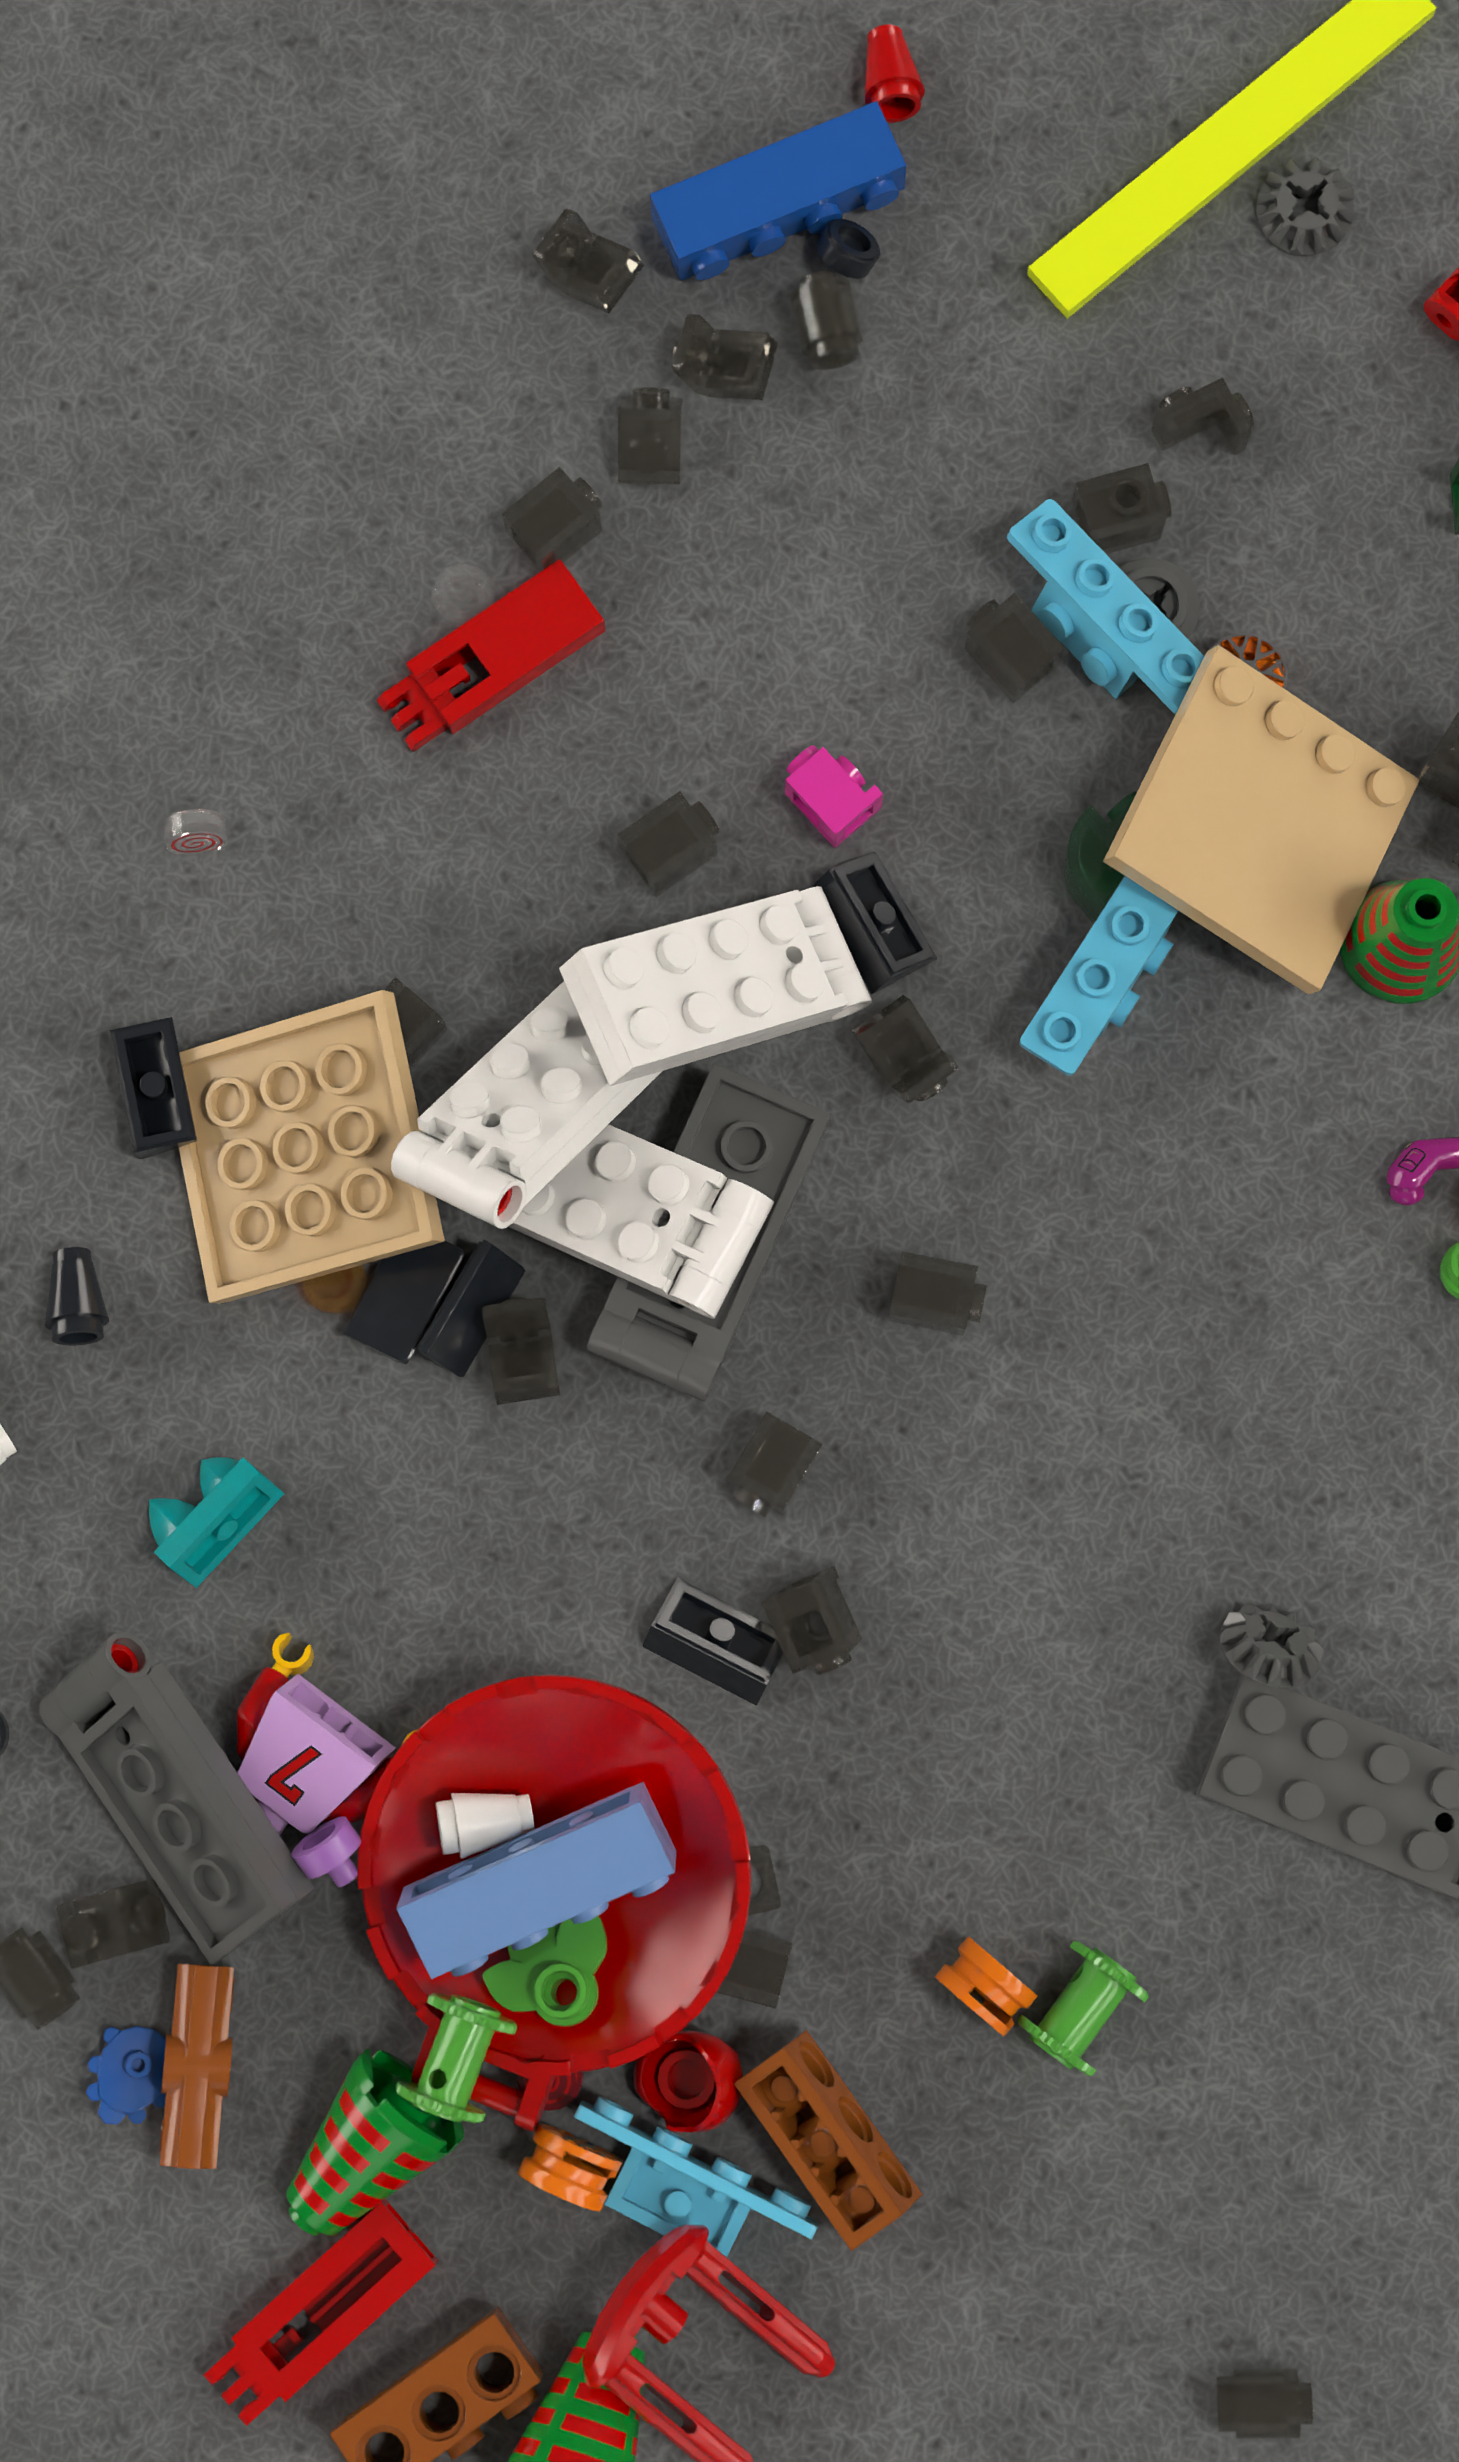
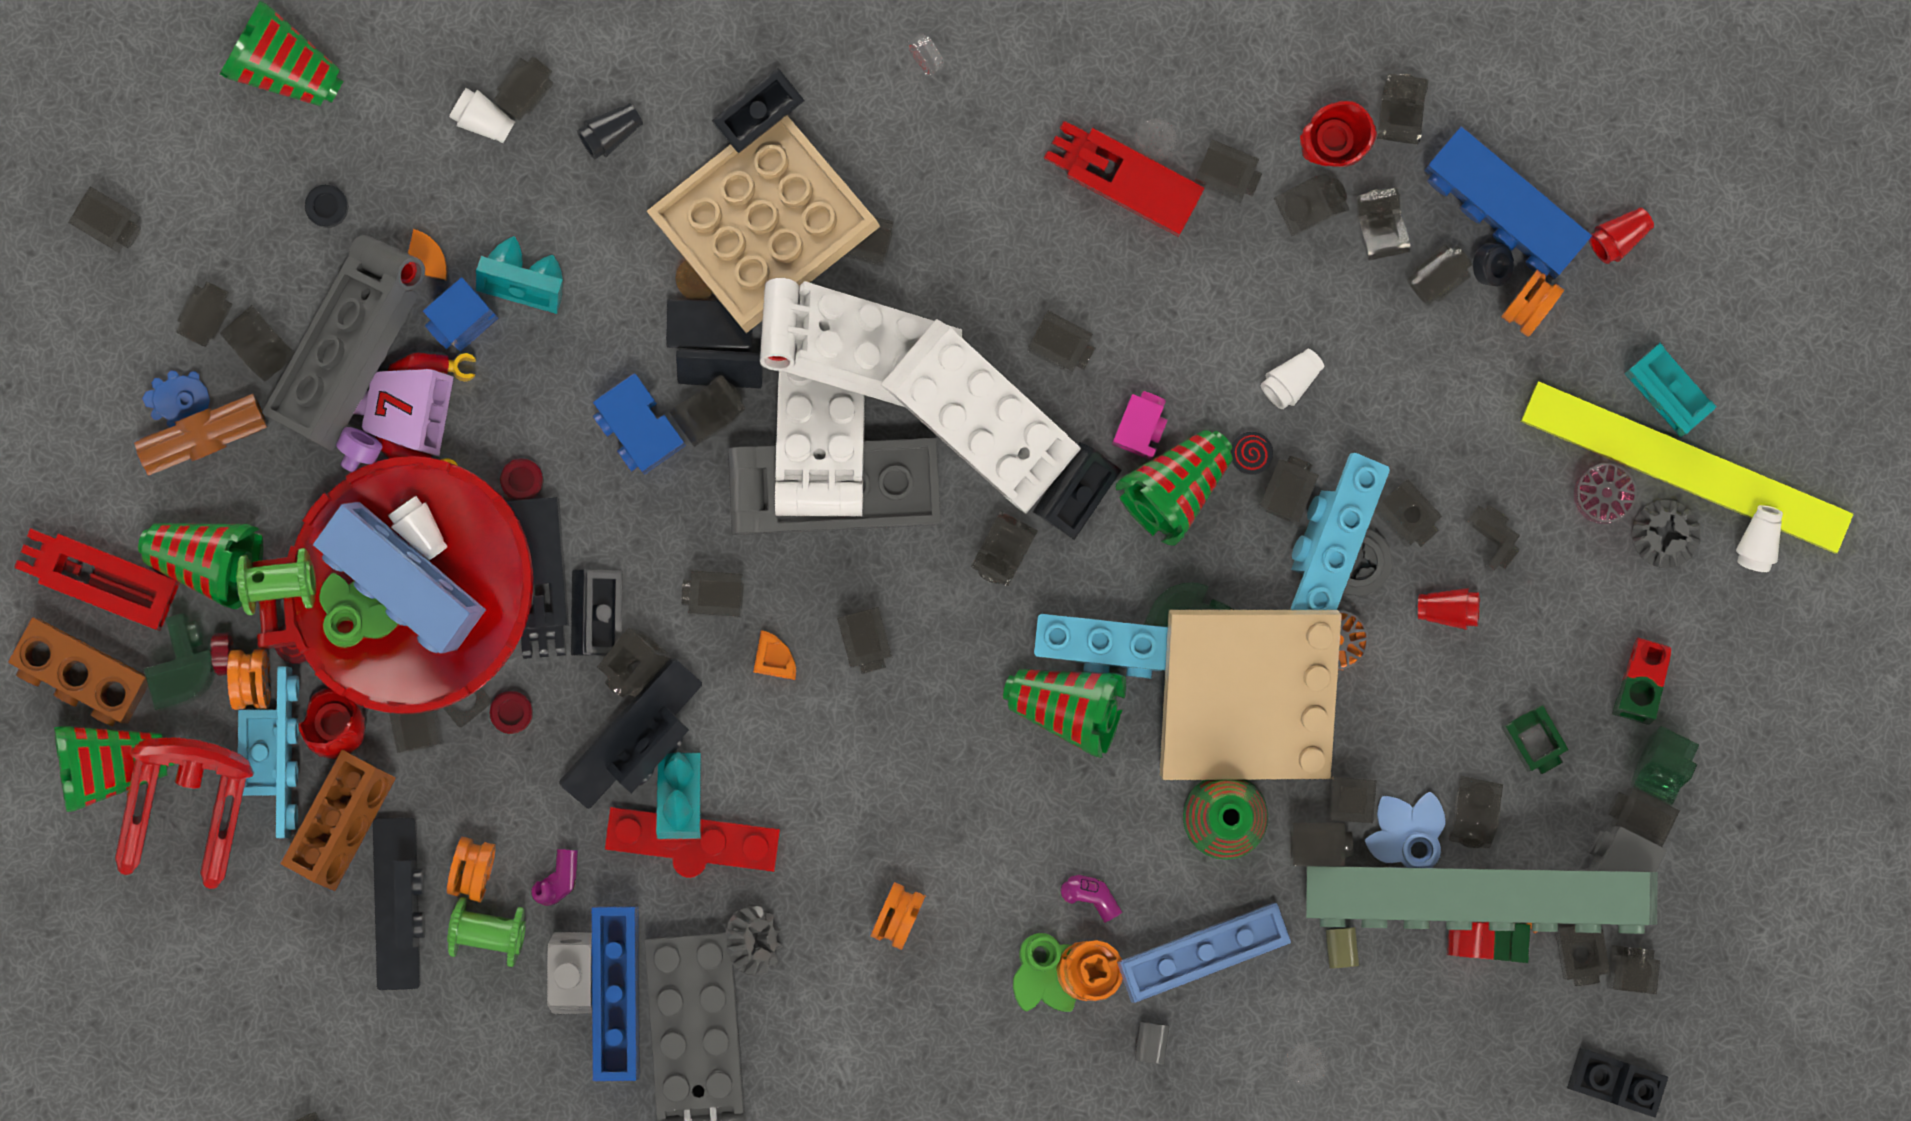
camera: 65 degrees right, 5 degrees up
(102, 1623) = (430, 254): none -> orange tile
(219, 1621) = (458, 316): none -> blue brick
(485, 1652) = (521, 479): none -> dark red tile
(491, 1459) = (643, 436): none -> blue brick
(510, 2187) = (220, 648): none -> dark red tile
(522, 2253) = (187, 676): none -> clear green brick
(564, 1651) = (543, 532): none -> black hinge
(579, 353) = (1338, 135): none -> red hair
(795, 1825) = (511, 712): none -> dark red tile
(867, 574) = (1291, 379): none -> white cone
(897, 1430) = (774, 657): none -> orange tile
(918, 1669) = (636, 738): none -> black bracket
(925, 220) = (1532, 311): none -> orange wheel
(935, 786) = (1176, 485): none -> green cone
(938, 673) = (1251, 453): none -> black tile
(982, 2117) = (396, 903): none -> black bracket
(1024, 1649) = (679, 796): none -> teal tile
(1061, 1874) = (560, 882): none -> magenta arm
(1092, 1664) = (719, 843): none -> red hinge
(1124, 113) = (1670, 390): none -> teal hinge
(1155, 1067) = (1069, 705): none -> green cone
(1195, 1915) = (570, 973): none -> light grey torso
(1217, 255) = (1605, 493): none -> wheel
(1256, 1870) = (615, 993): none -> blue brick
(1270, 517) = (1450, 608): none -> red cone
(1332, 1433) = (905, 911): none -> orange wheel
(1375, 88) = (1761, 540): none -> white cone

